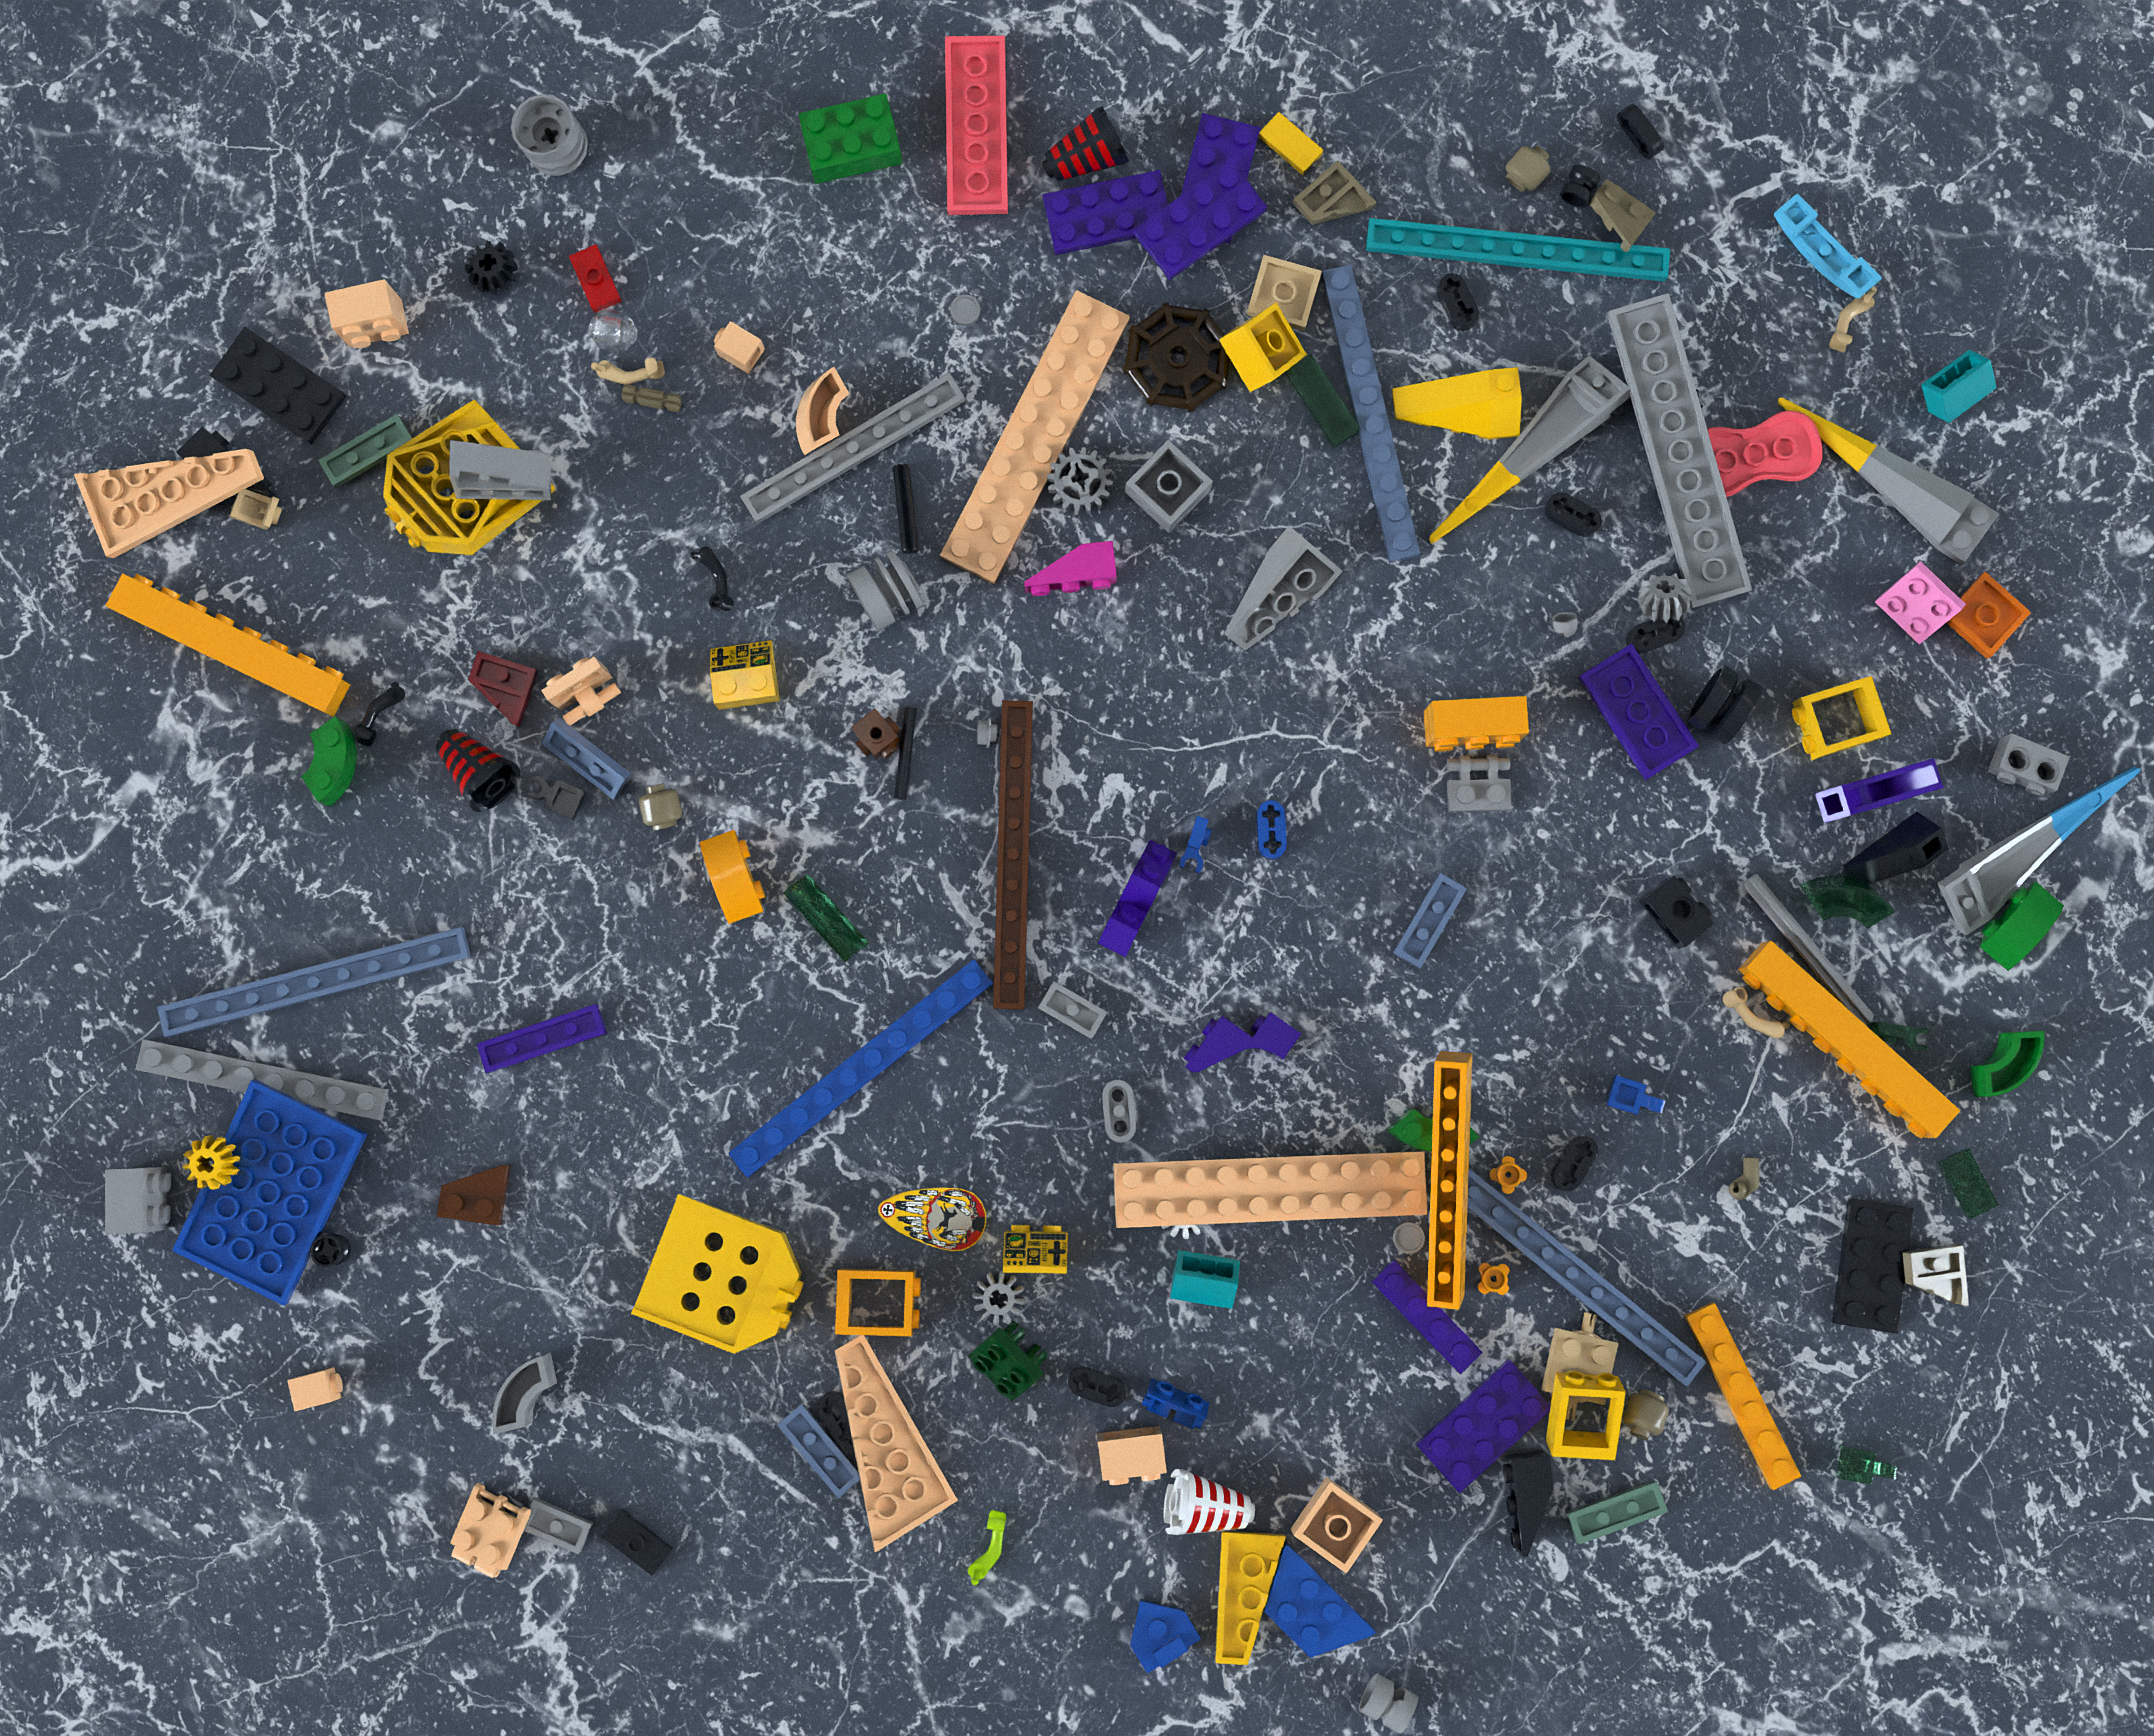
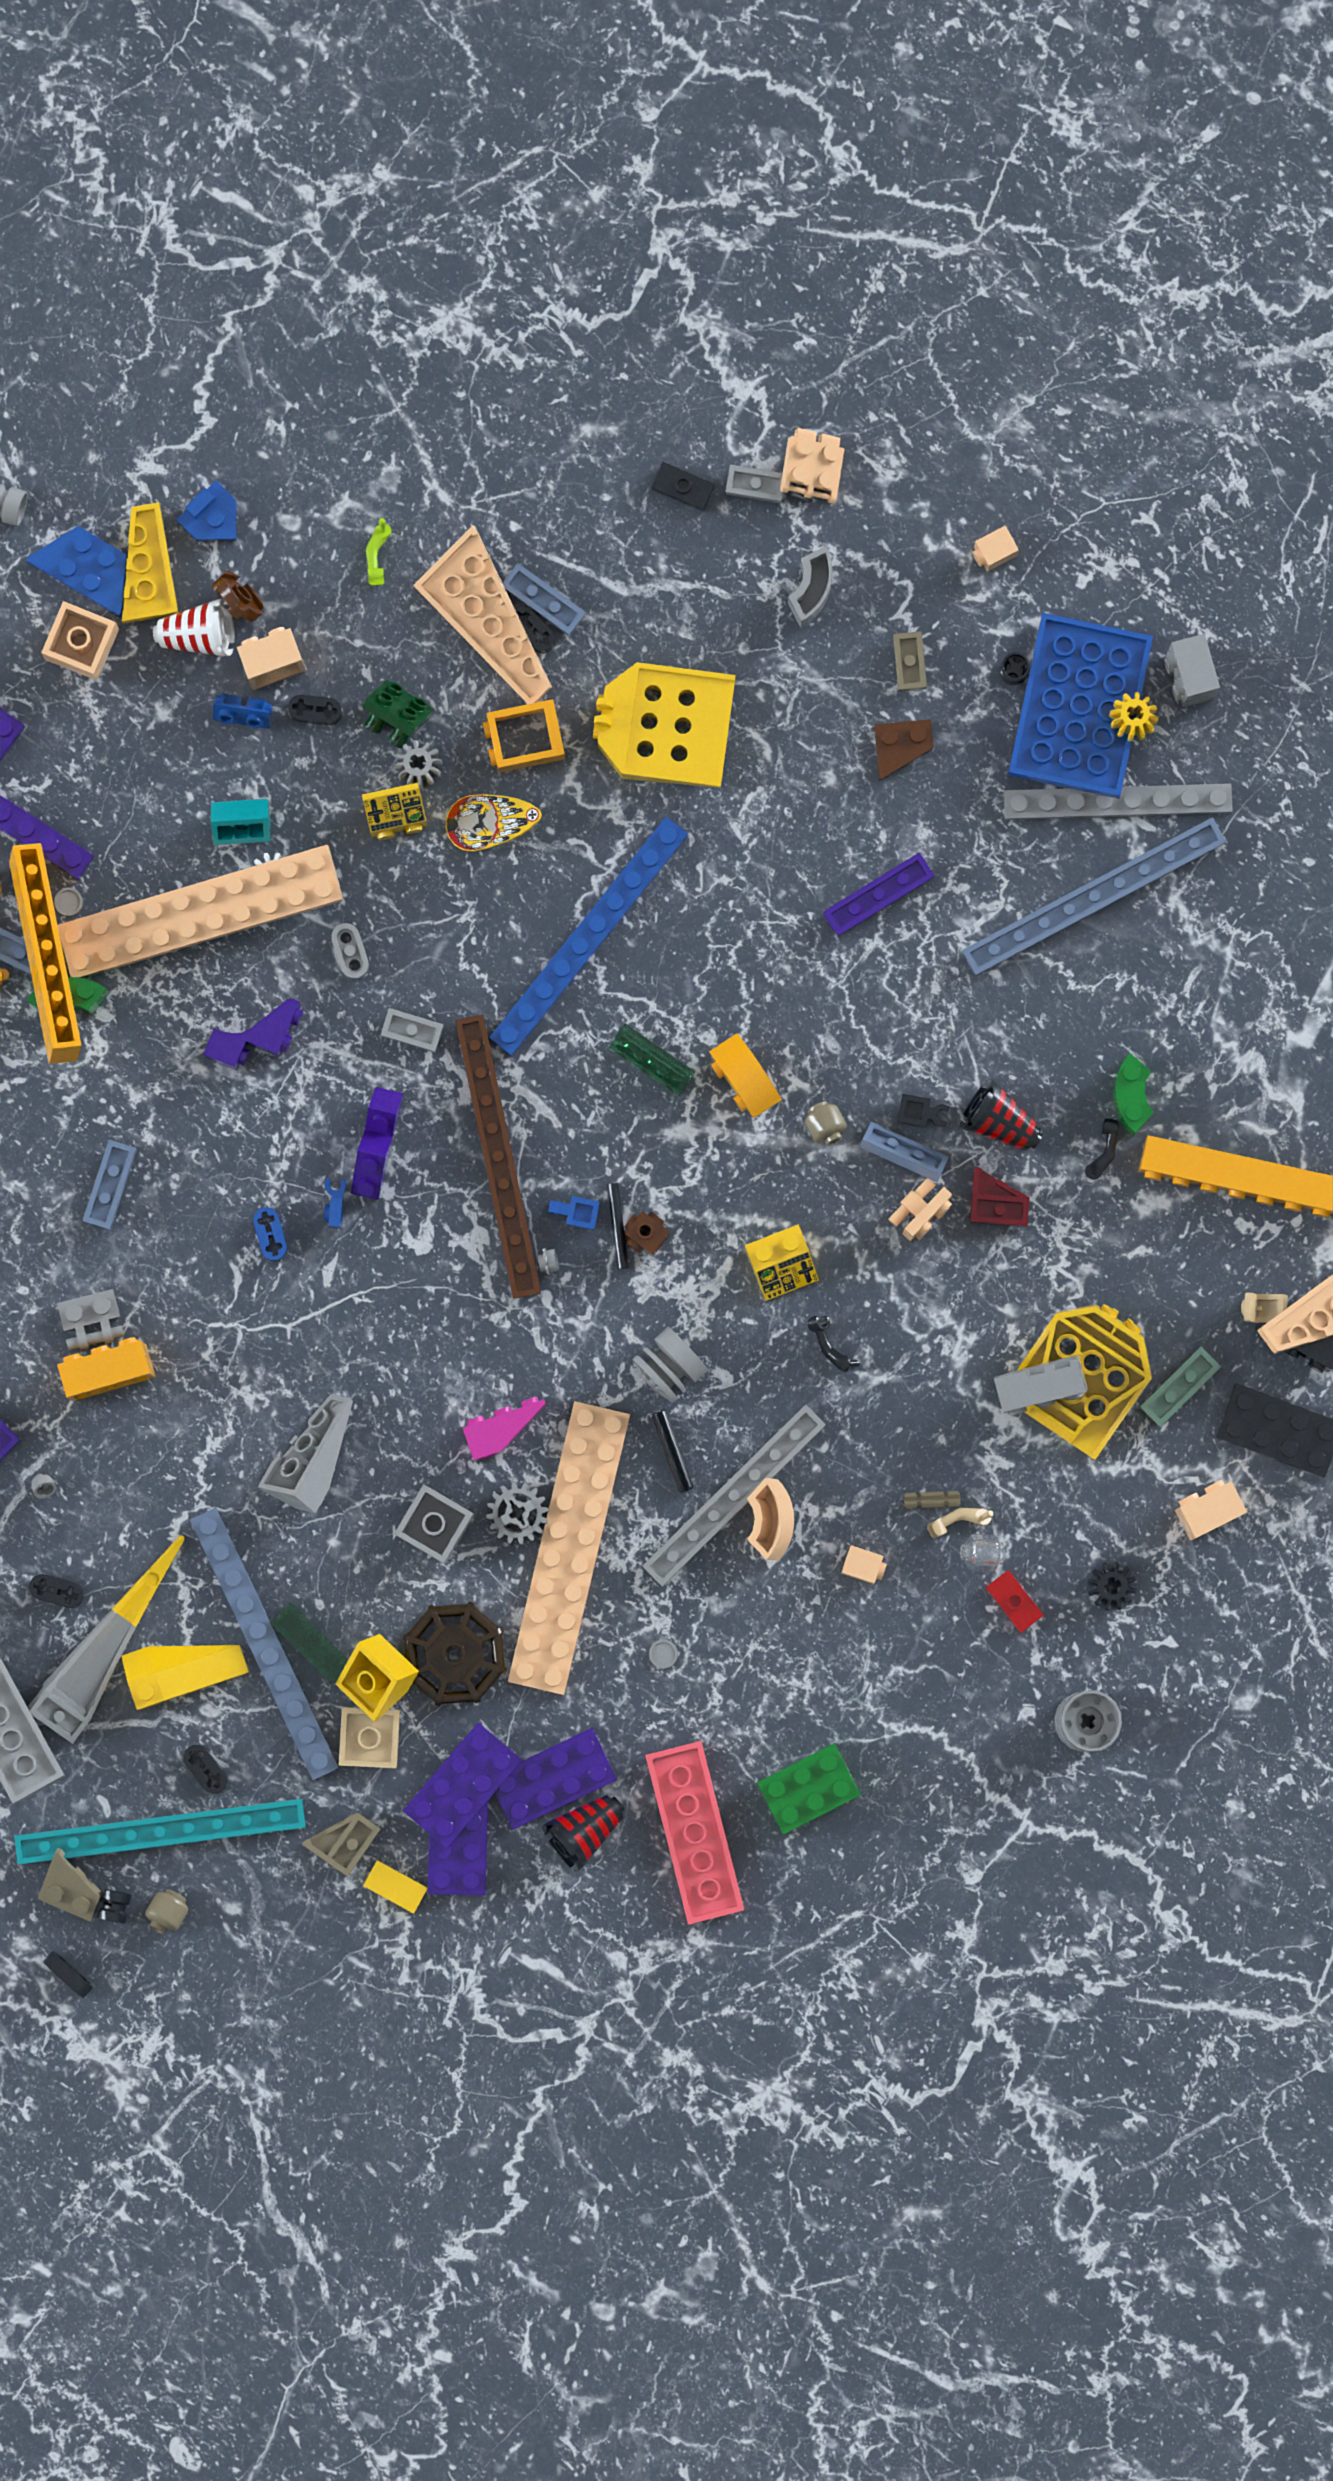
camera: 170 degrees right, 0 degrees up
(441, 1286) = (909, 661): none -> dark tan plate
(941, 775) = (579, 1213): none -> blue plate
(1150, 1529) = (240, 599): none -> reddish brown plate

